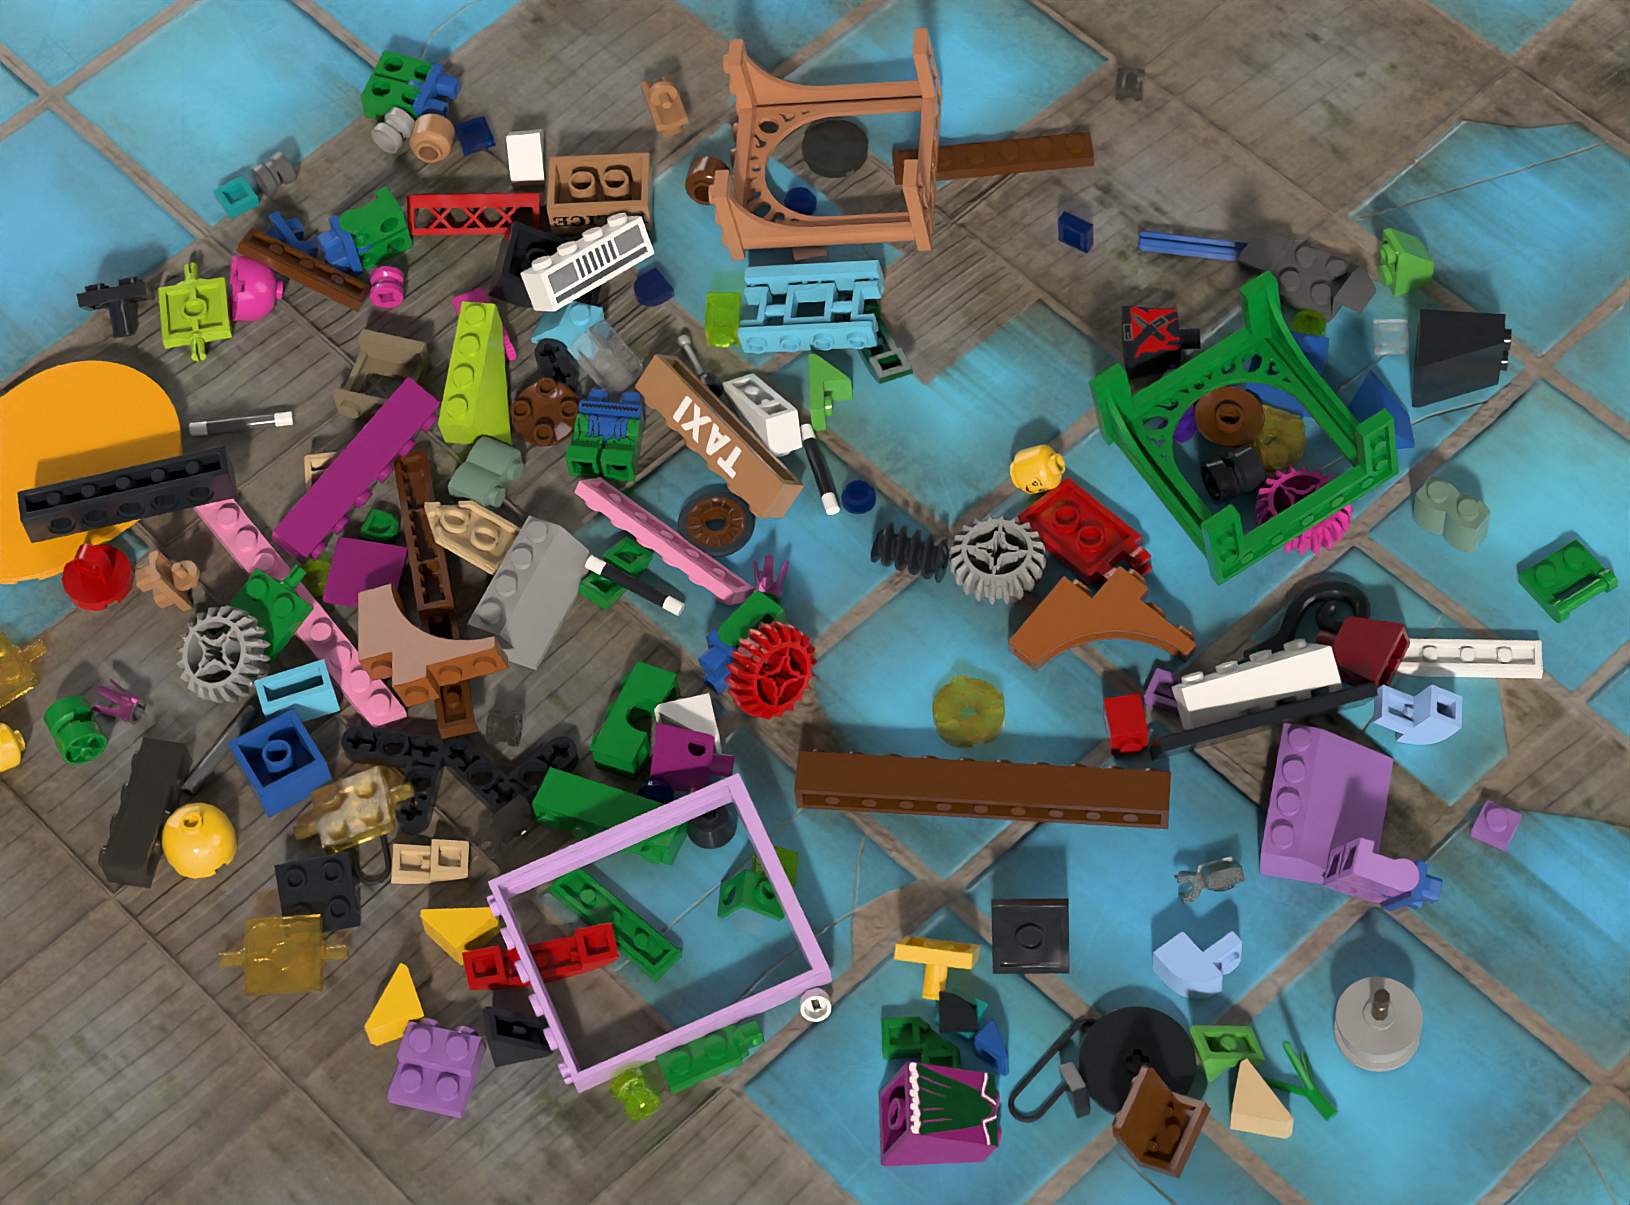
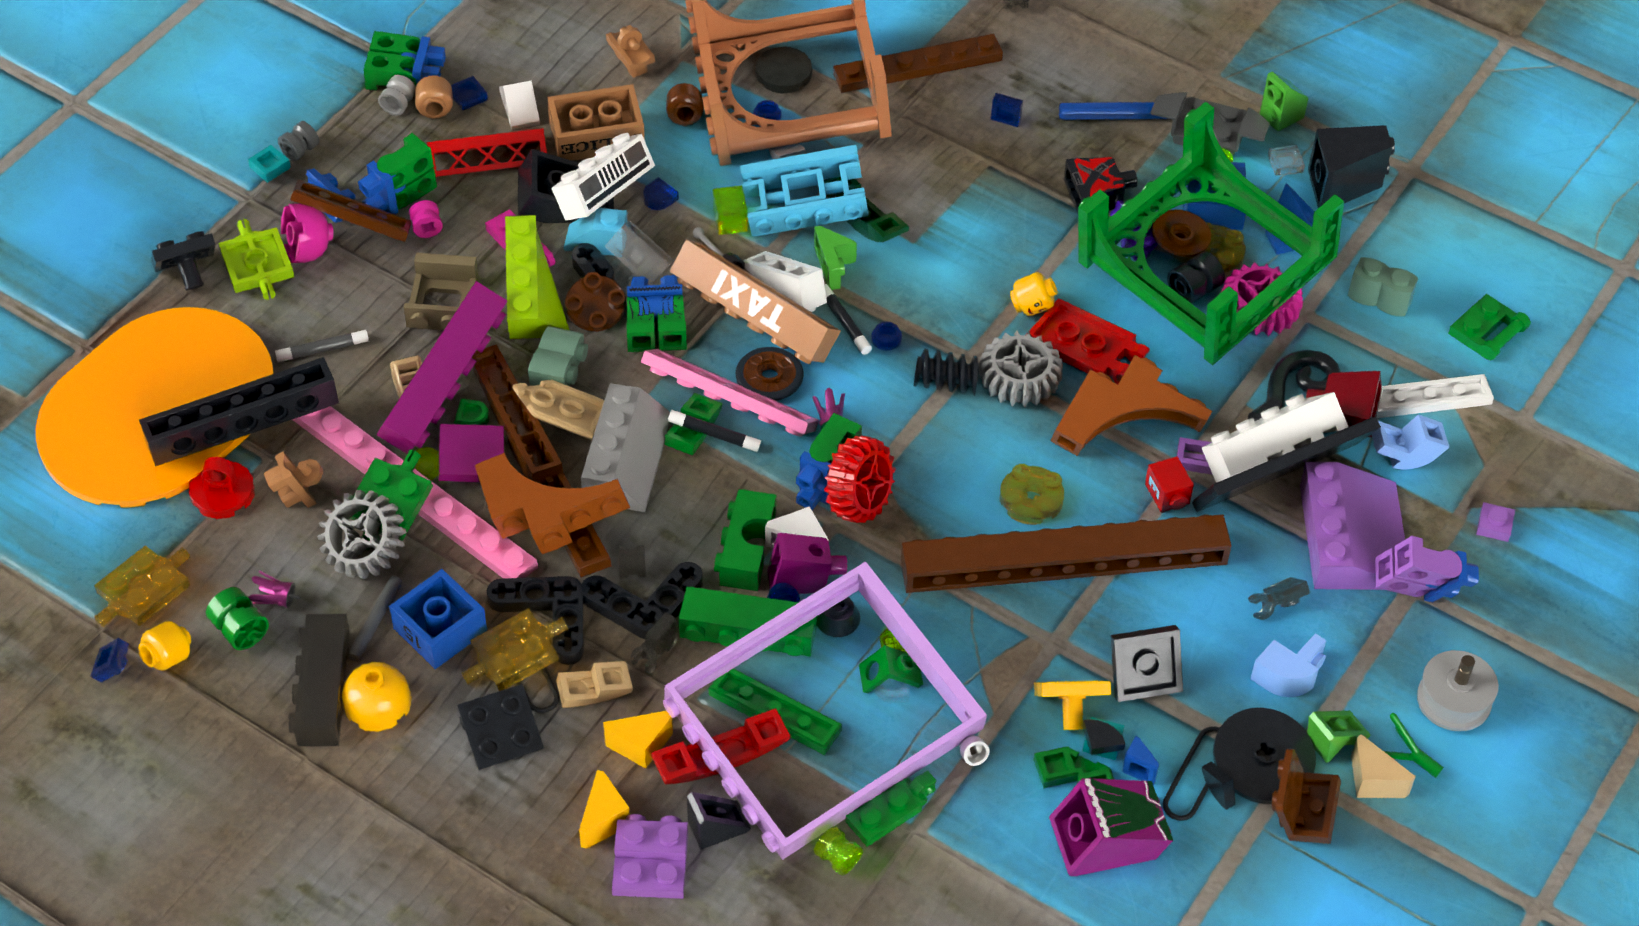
camera: 20 degrees left, 5 degrees down
(283, 955) = (482, 782): clear yellow plate -> none
(303, 688) = (445, 550): medium azure piece -> none

